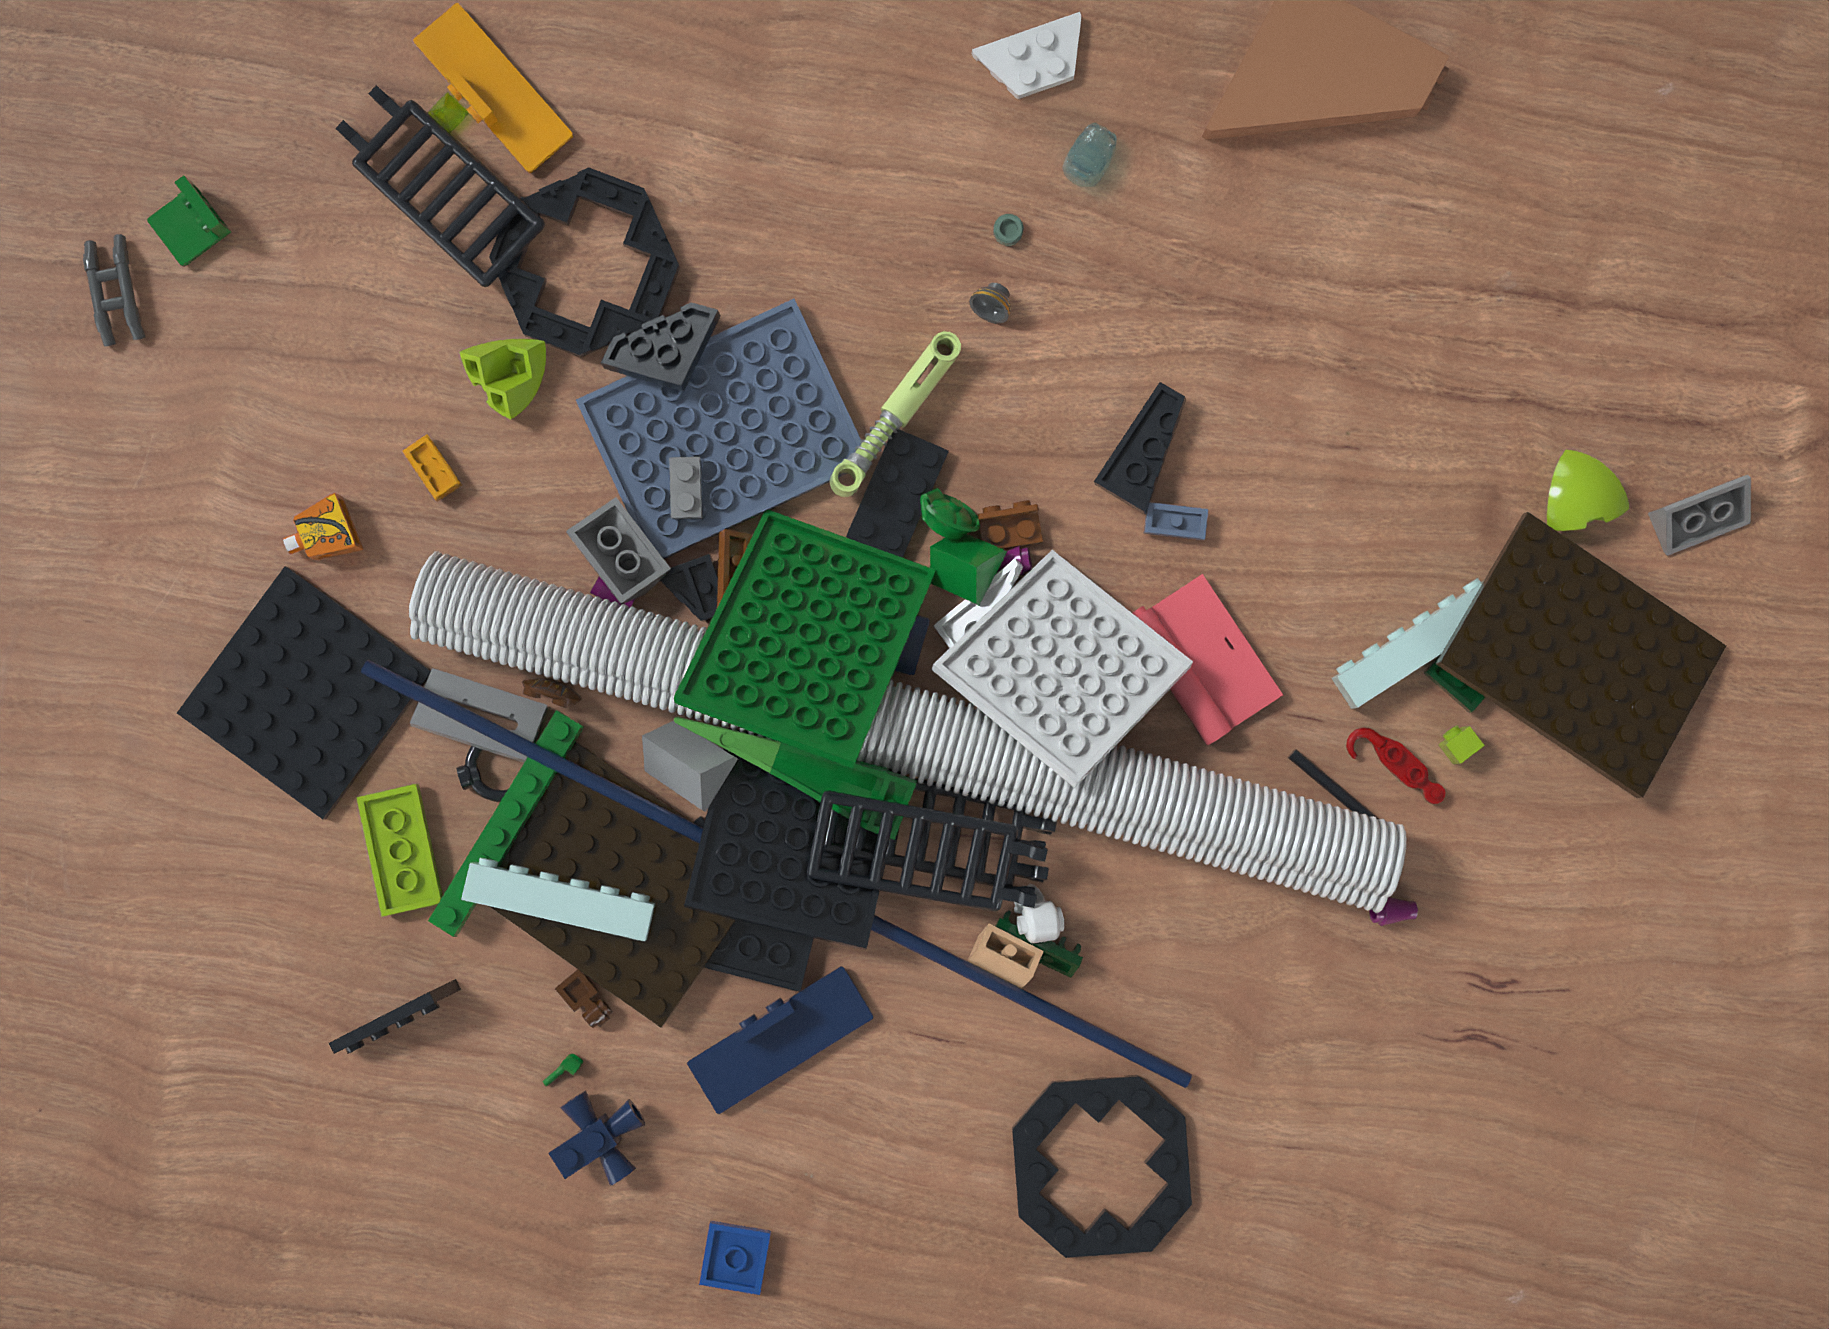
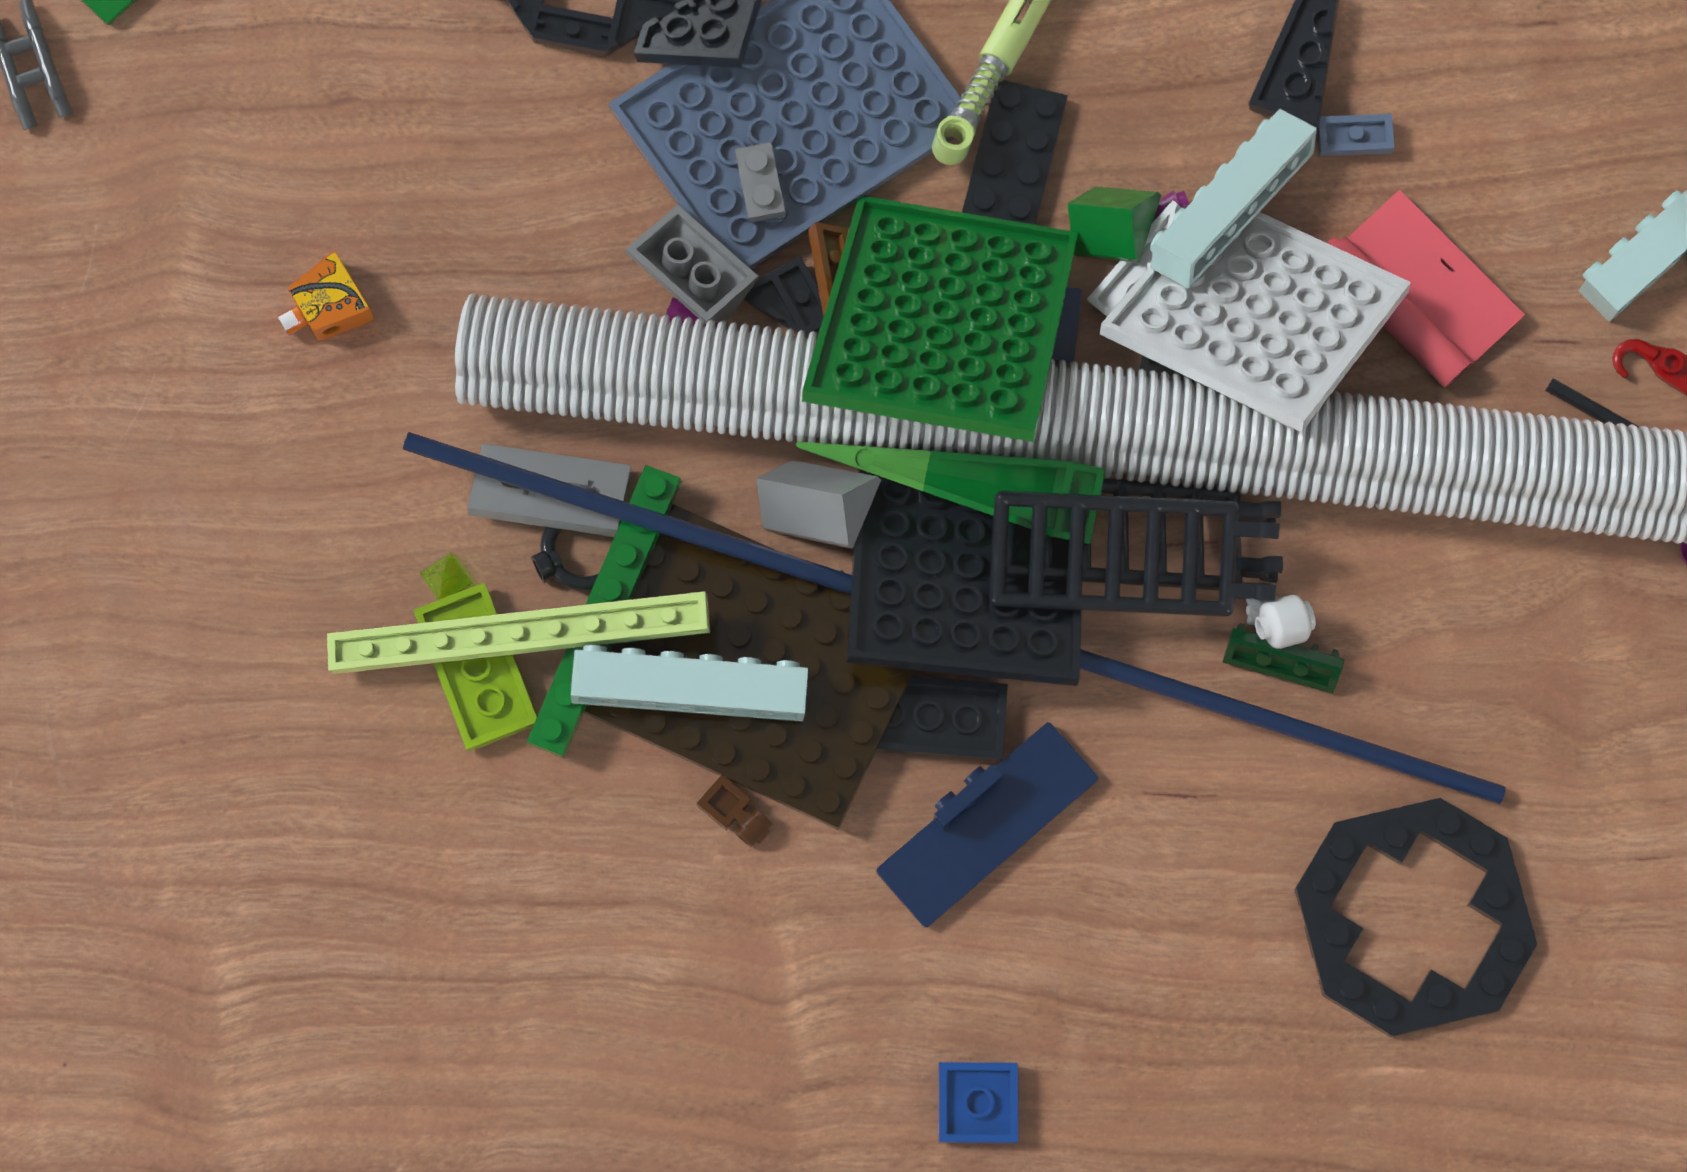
camera: 10 degrees left, 10 degrees down
(294, 693) = (325, 499): black plate -> none
(388, 772) = (445, 577): none -> clear neon green slope
(398, 1016) = (503, 866): black wing -> none
(432, 467) = (446, 209): light orange plate -> none
(433, 835) = (518, 632): none -> yellowish green plate
(507, 372) = (520, 84): lime brick -> none
(561, 693) = (621, 441): reddish brown dish -> none
(570, 1064) = (730, 896): green hand -> none
(596, 1138) = (779, 978): dark blue brick -> none
(948, 515) = (1081, 166): green piece -> none
(1005, 956) = (1248, 672): light nougat brick -> none
(1011, 526) = (1158, 167): dark orange bracket -> none
(1063, 566) = (1232, 198): none -> light aqua brick

